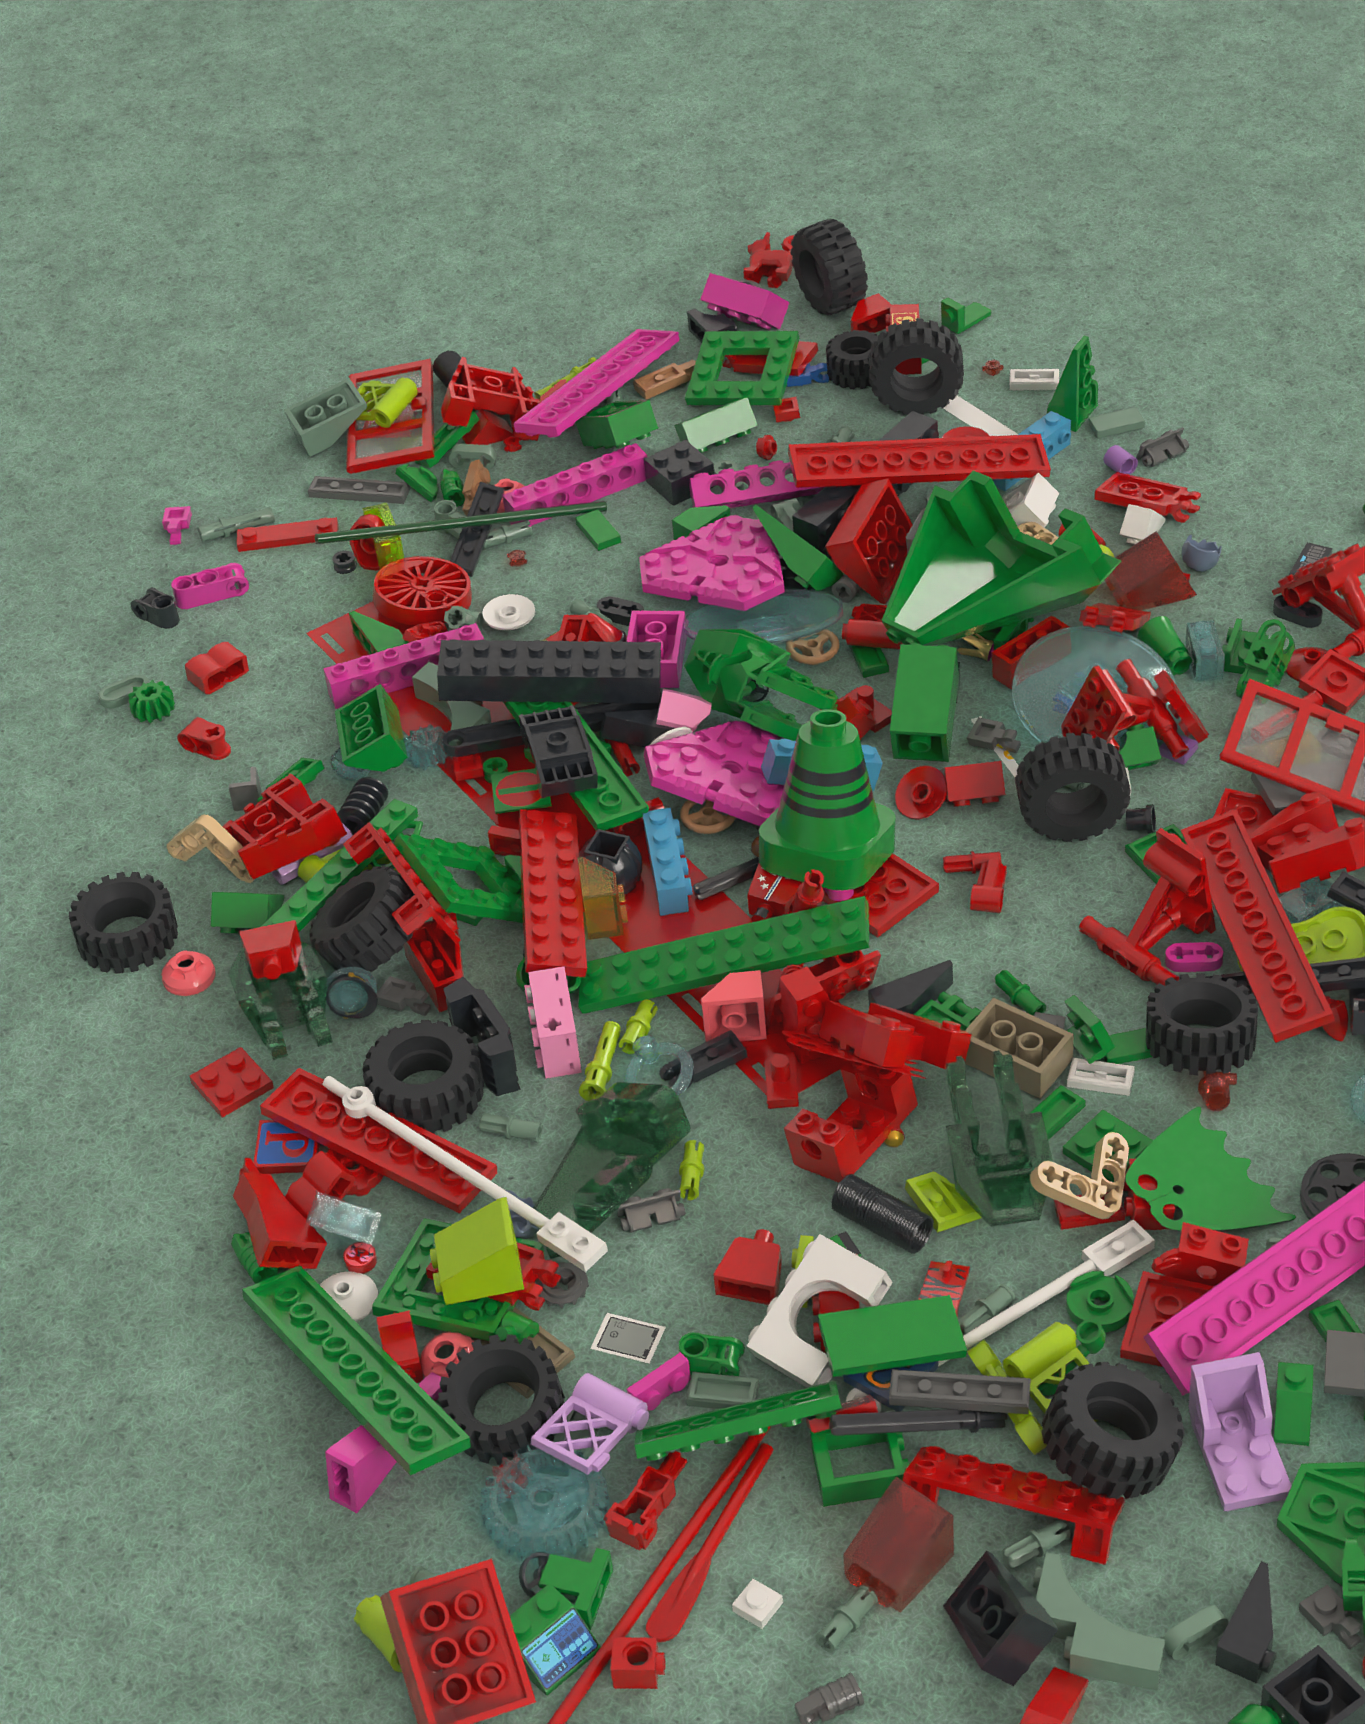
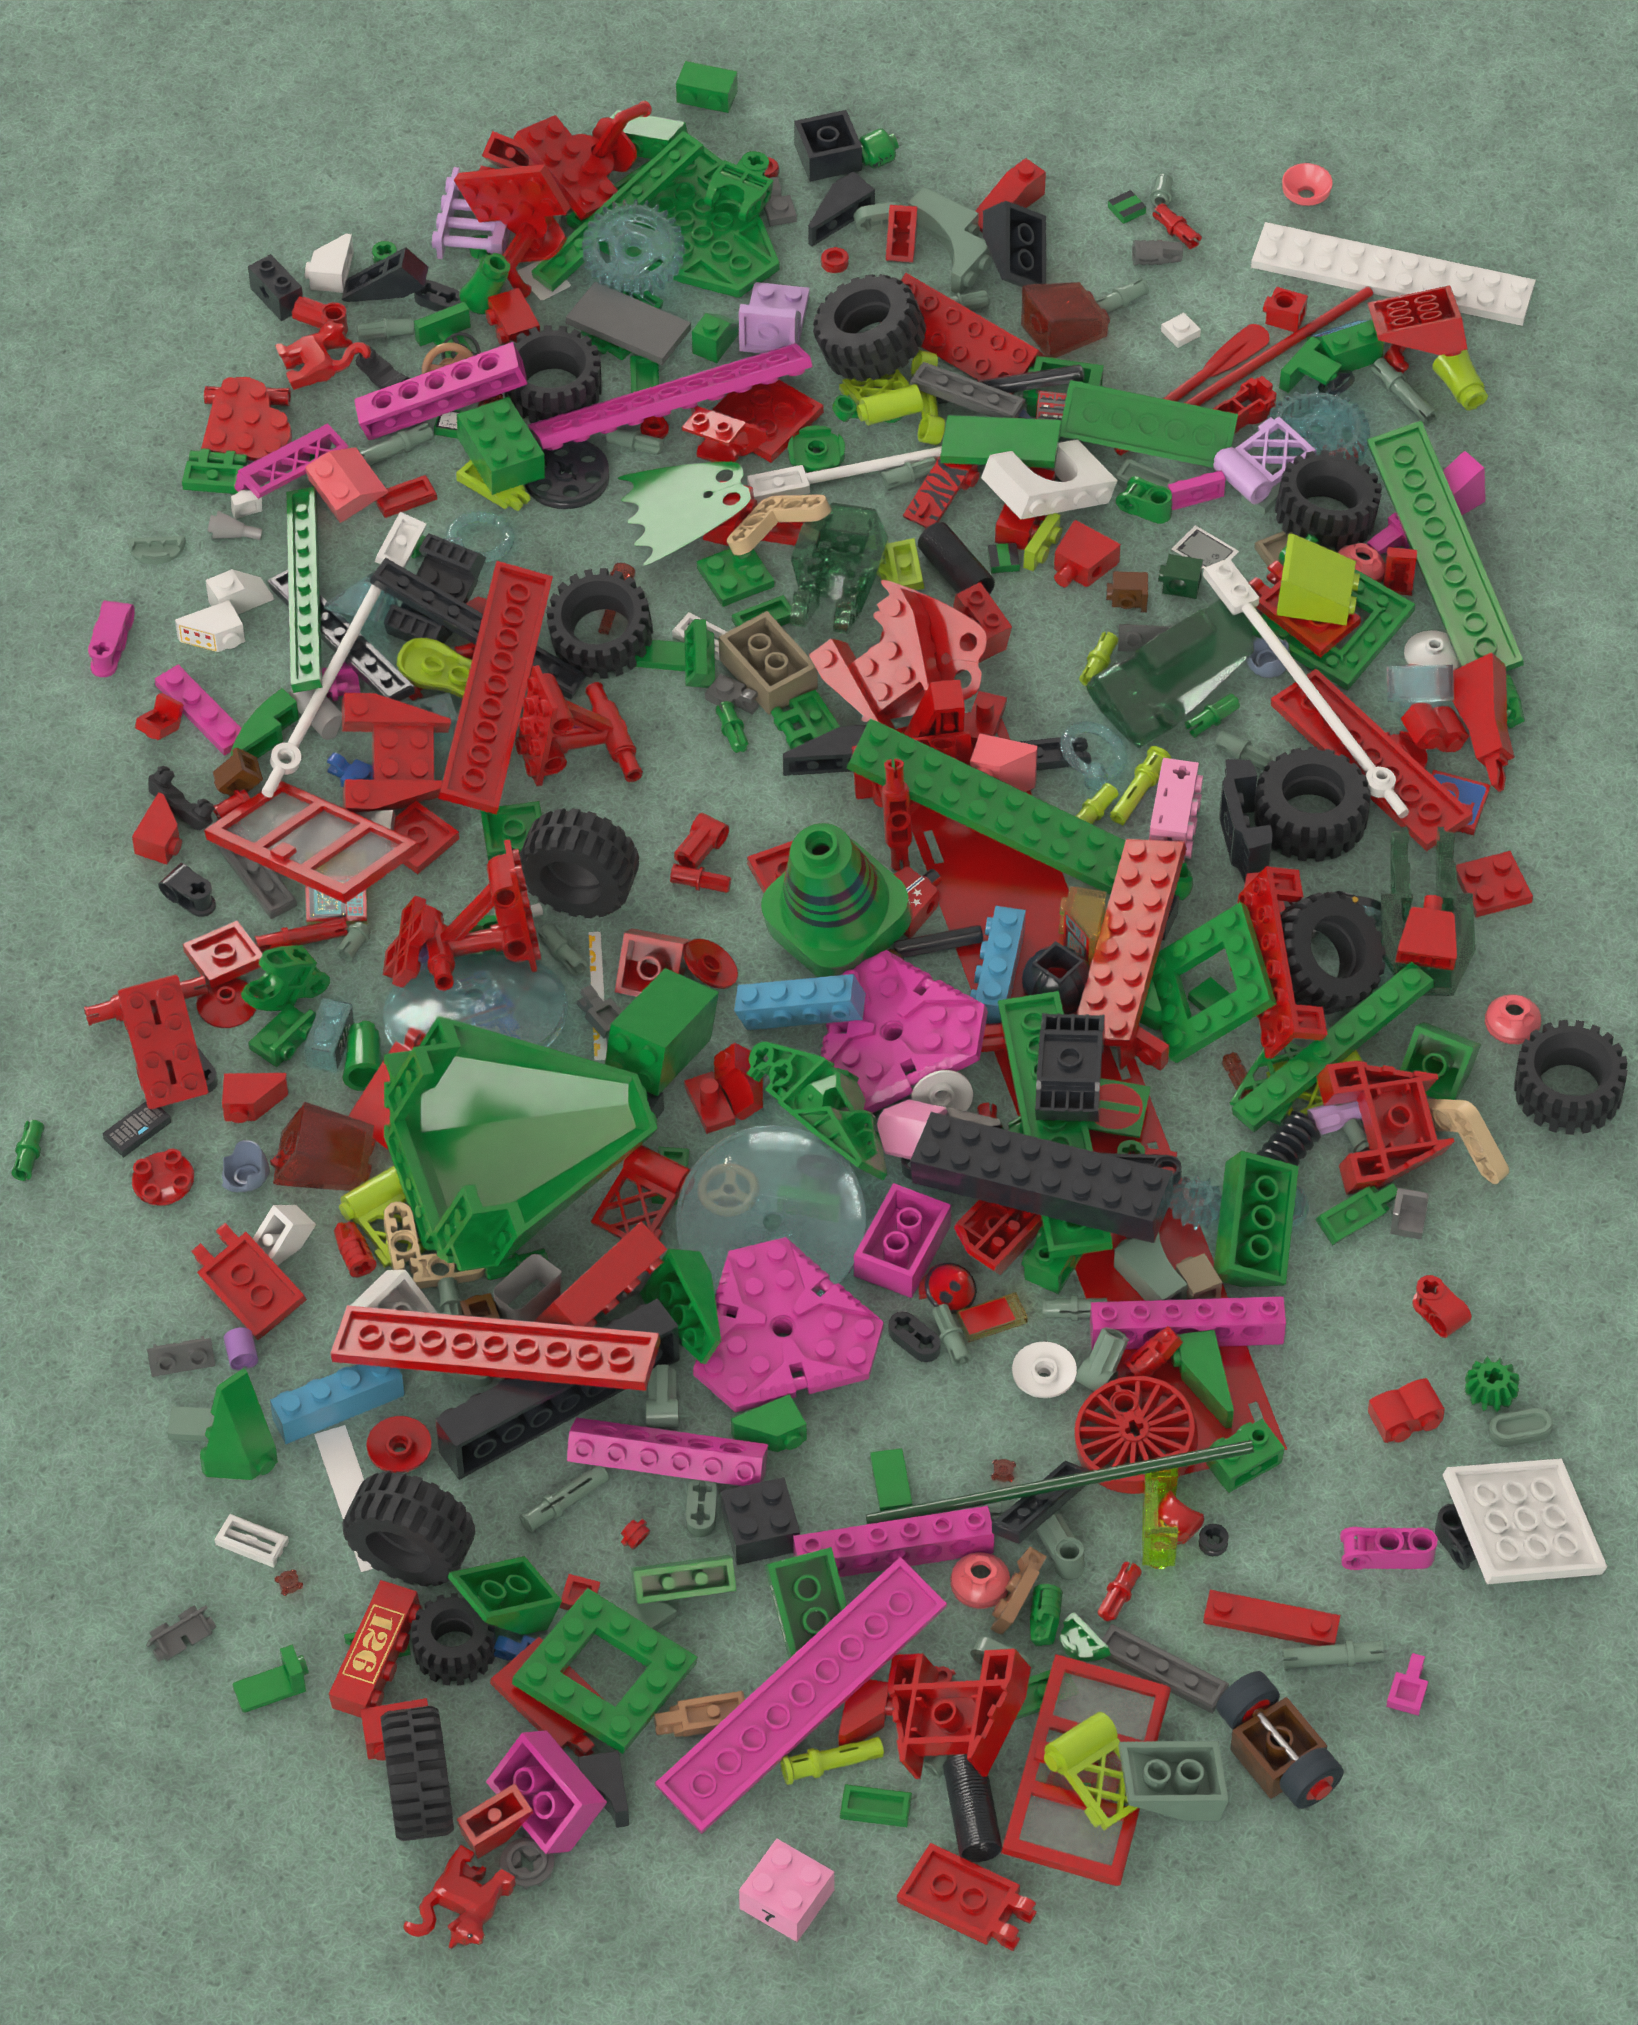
camera: 165 degrees left, 10 degrees up
(107, 617) = (1524, 1521): none -> white plate
(256, 453) = (1277, 1742): none -> brick
(332, 605) = (1241, 1469): none -> green brick
(403, 512) = (1119, 1591): none -> red axle
(408, 695) = (1201, 1278): none -> dark tan brick
(433, 343) = (966, 1897): none -> red tile
(536, 374) = (875, 1805): none -> green tile
(553, 1150) = (1212, 714): none -> green axle
(566, 316) = (786, 1890): none -> bright pink brick
(638, 1279) = (1181, 576): none -> dark green brick
(688, 1246) = (1128, 590): none -> reddish brown brick
(777, 280) = (494, 1820): none -> red slope
(831, 367) = (509, 1595): none -> green slope
(1046, 323) = (191, 1624): none -> dark grey hinge
(1153, 1611) = (901, 233): none -> red slope
(1219, 1563) = (834, 260): none -> red tile
(1238, 599) = (251, 1094): none -> red slope
(1262, 537) = (162, 1177): none -> red dish

